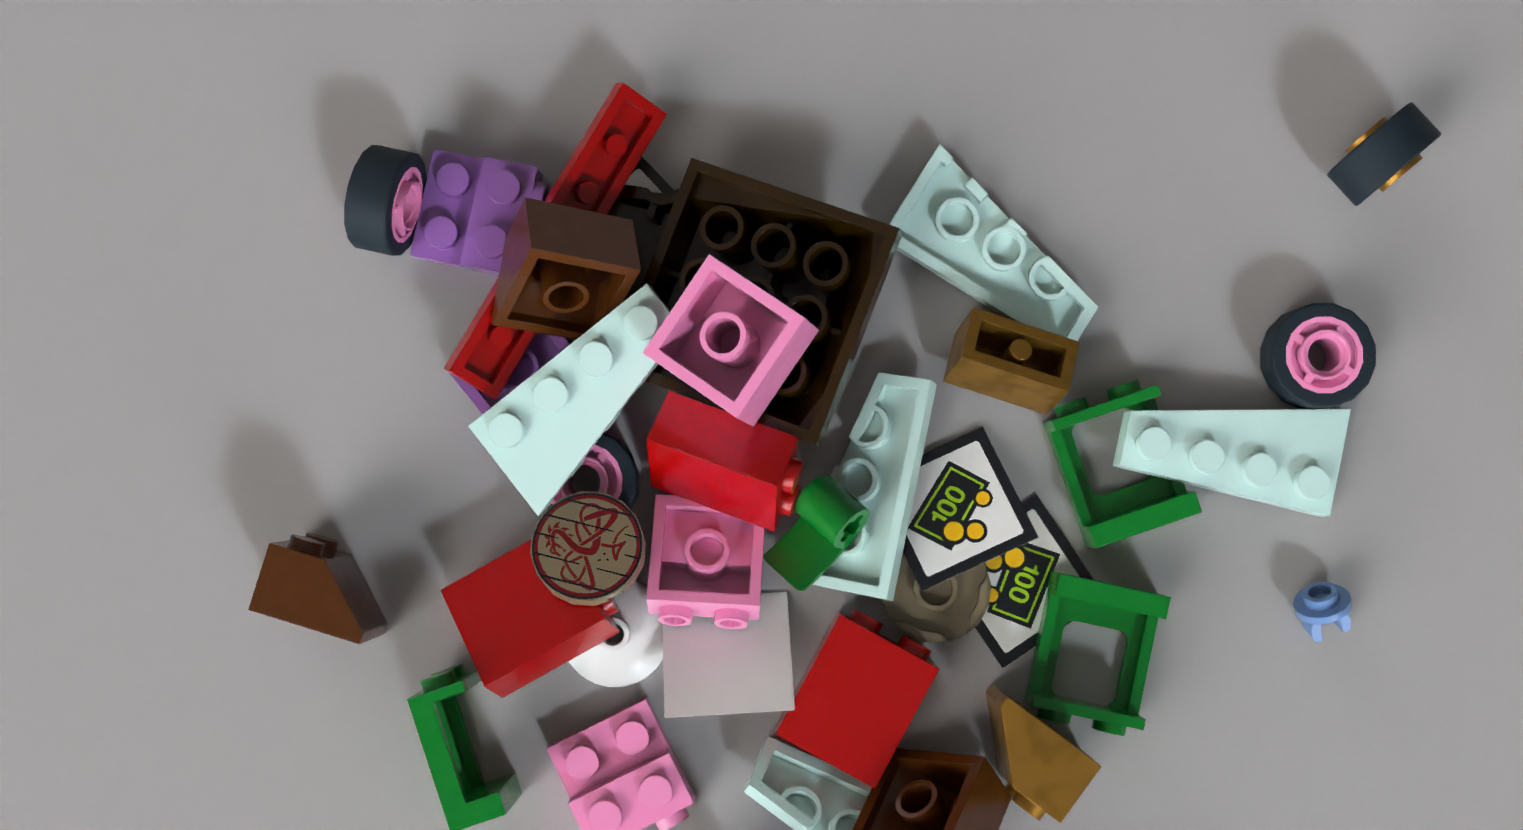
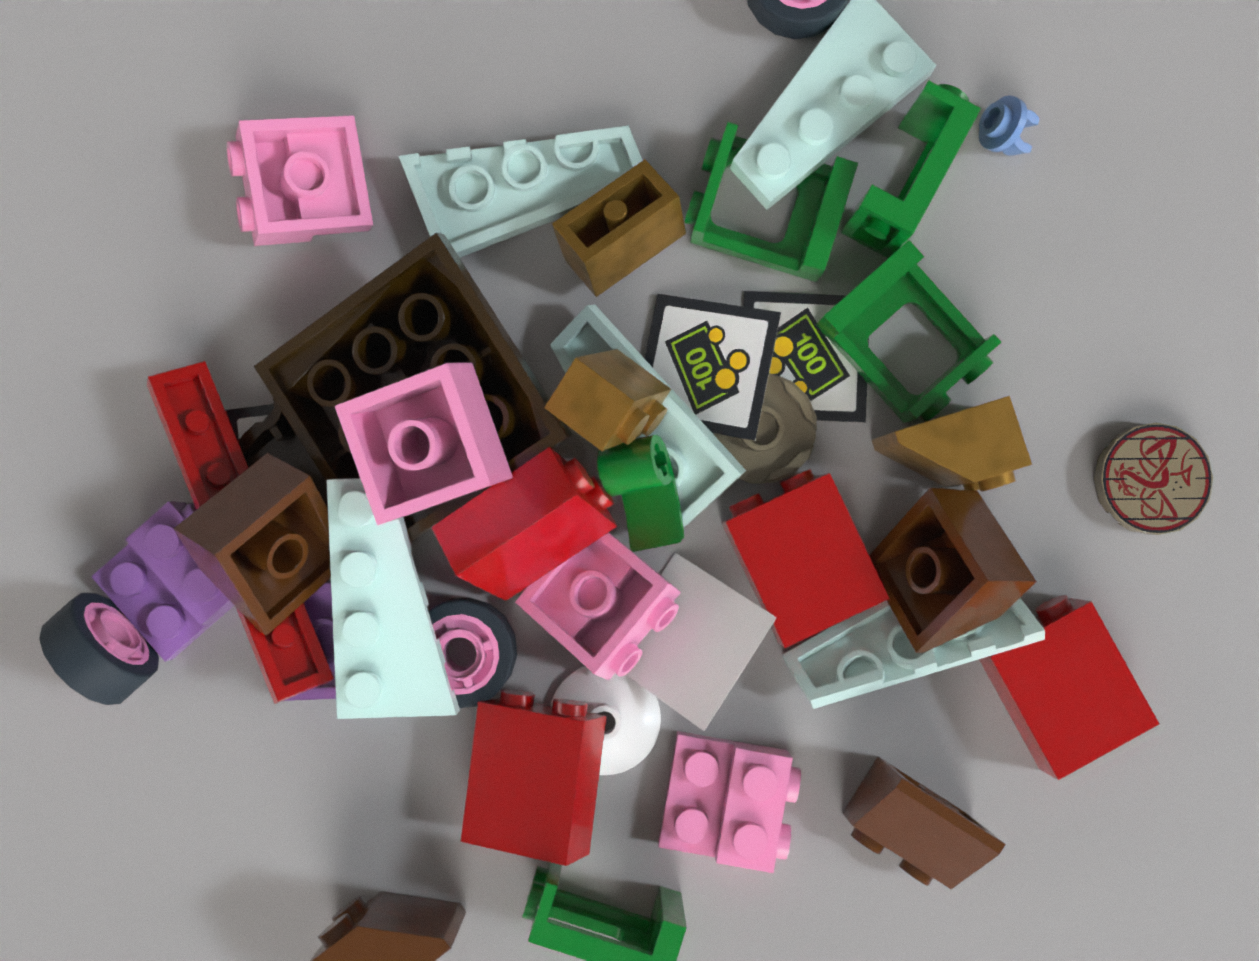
camera: 60 degrees left, 0 degrees up
(588, 548) = (514, 692): tile -> none
(864, 80) = (299, 178): none -> bright pink plate
(869, 455) = (609, 399): none -> pearl gold brick
(1285, 559) = (942, 121): none -> green window

